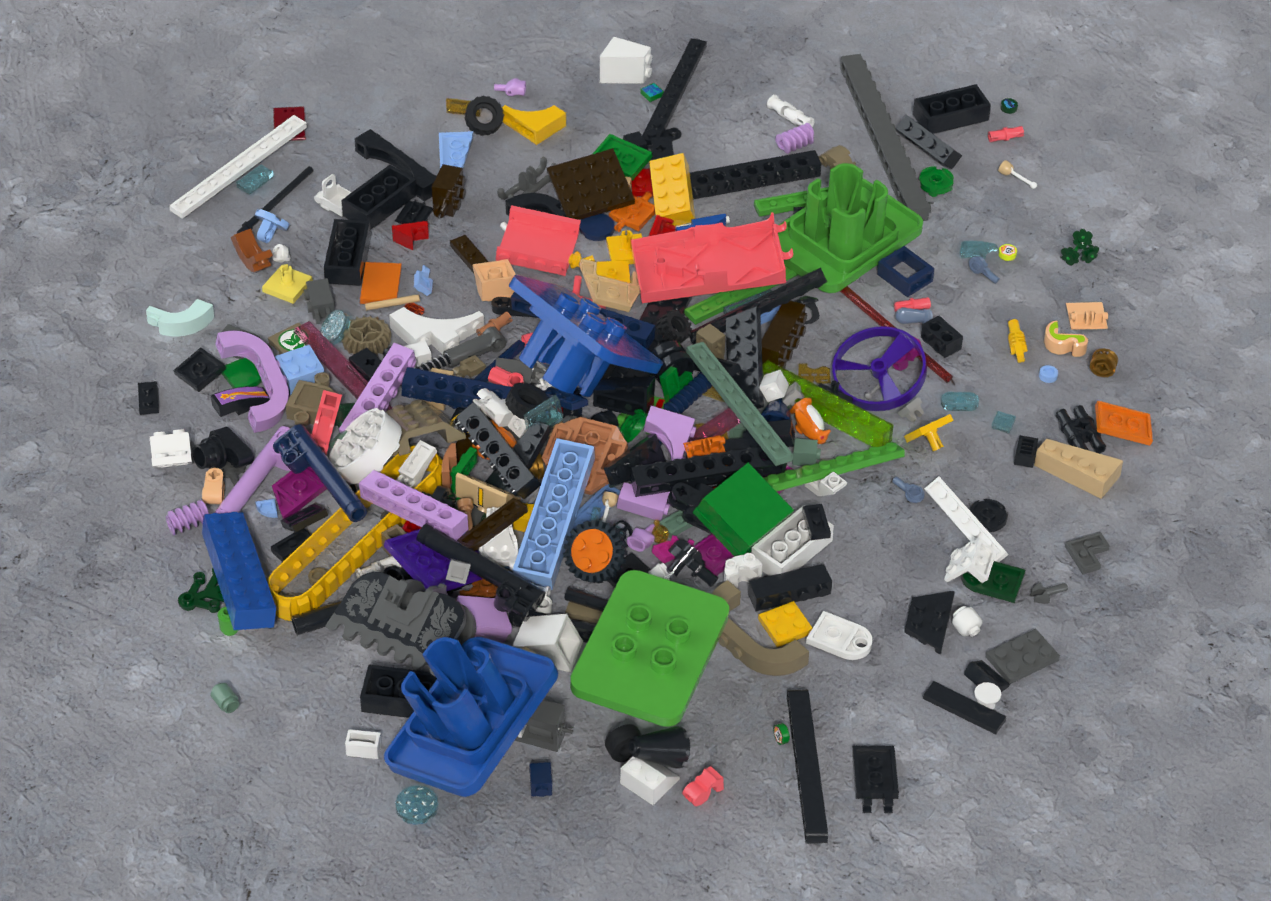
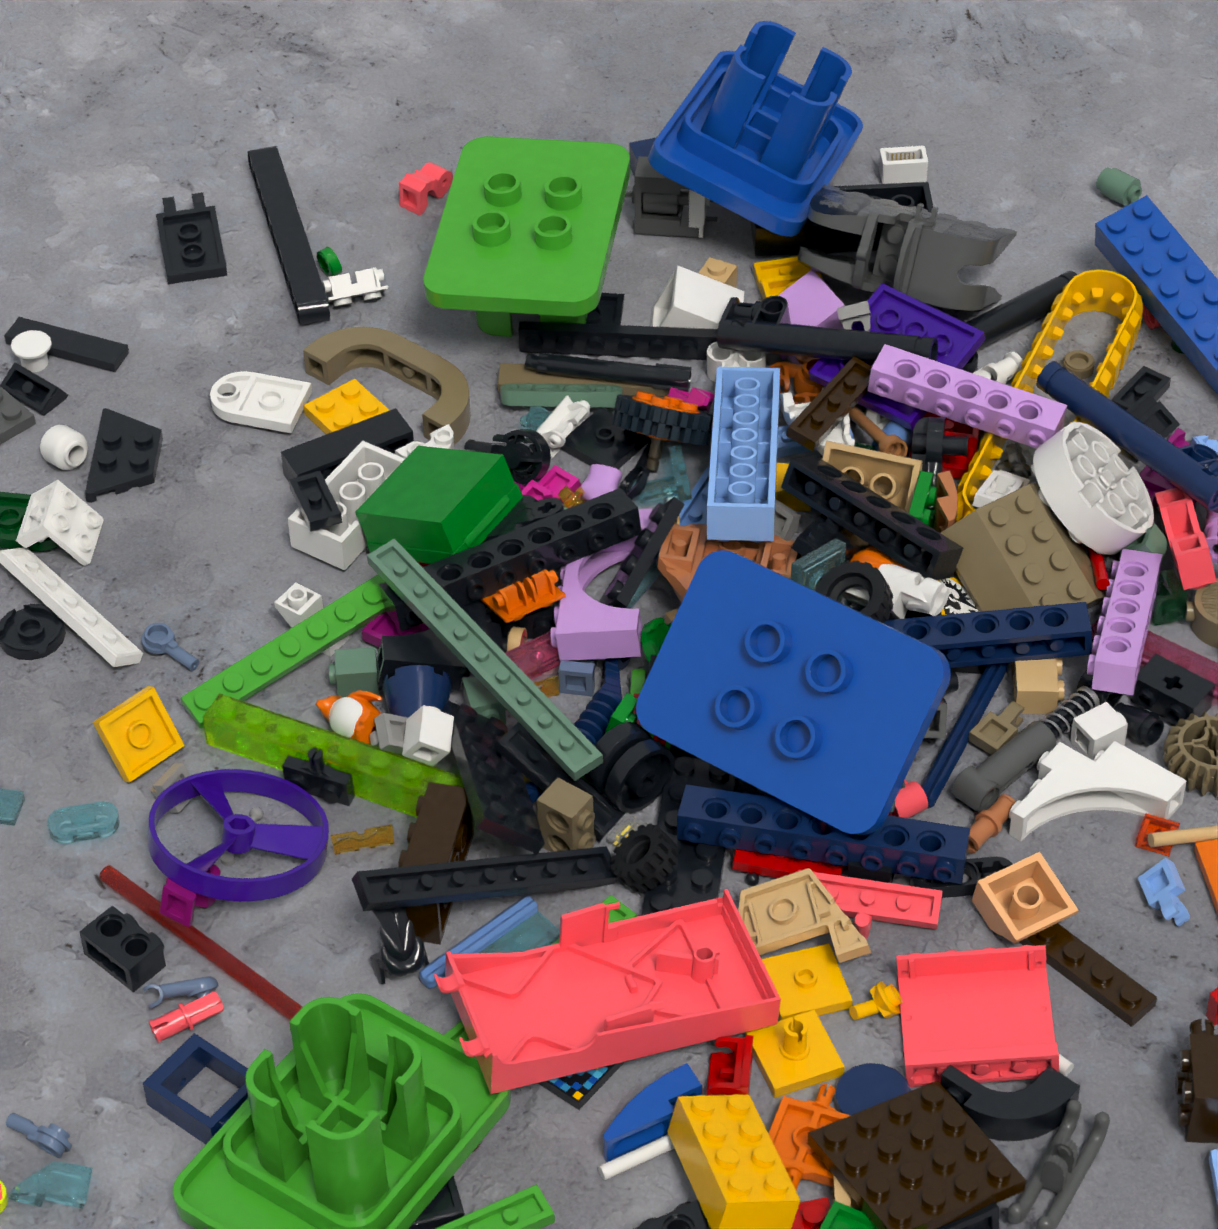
camera: 170 degrees right, 0 degrees up
(569, 575) = (697, 396): none -> dark pink slope
(766, 707) = (367, 285): none -> white hinge

